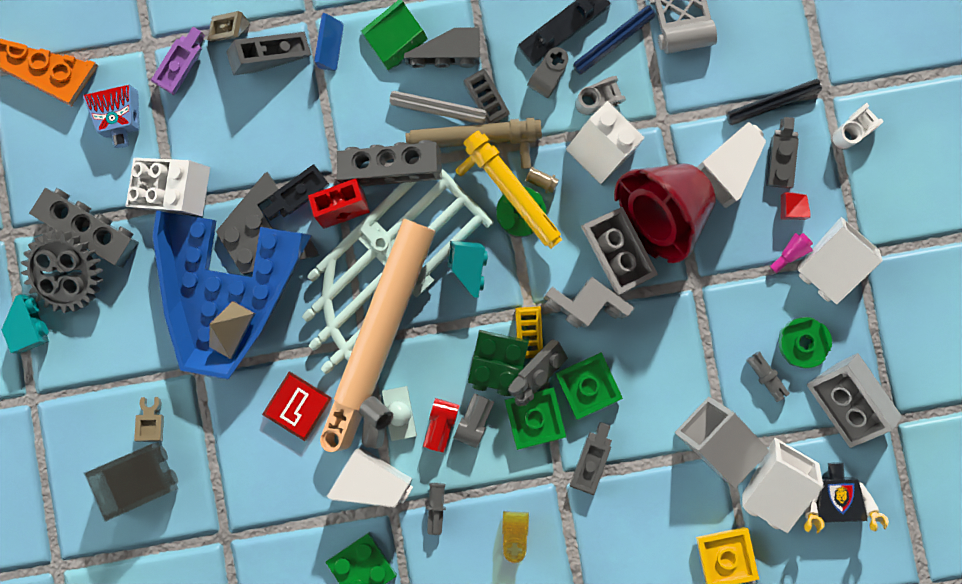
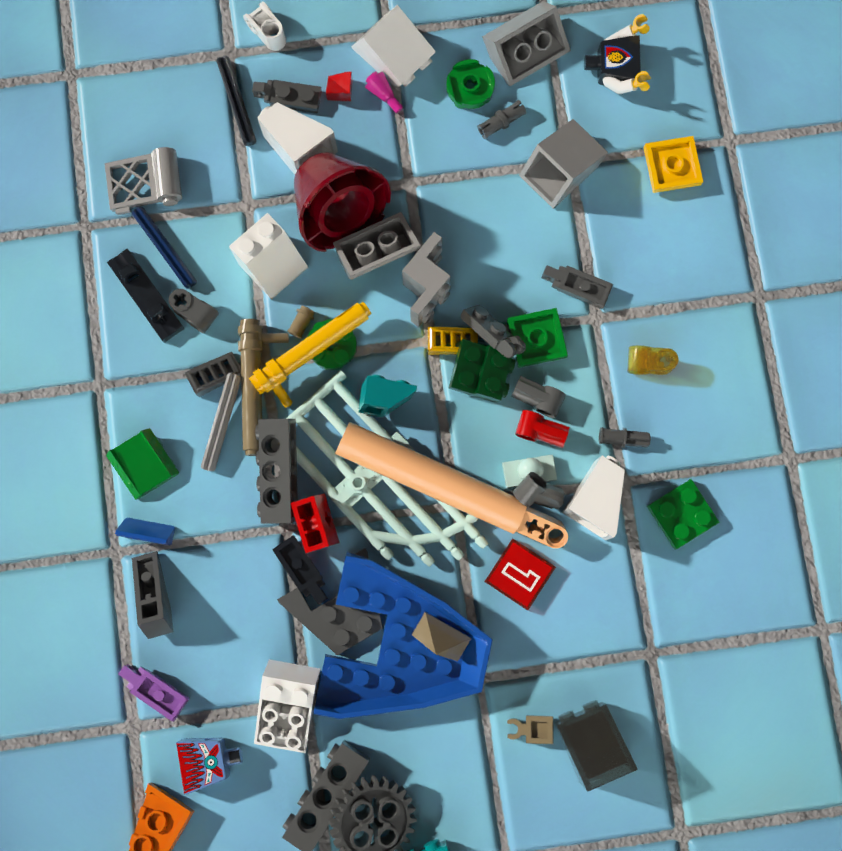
camera: 90 degrees left, 5 degrees down
(227, 26) = (121, 638): dark tan slope -> none
(452, 47) = (160, 399): dark grey slope -> none
(588, 385) = (506, 285): green plate -> none
(600, 93) = (220, 259): light grey piece -> none
(782, 486) = (607, 109): white slope -> none

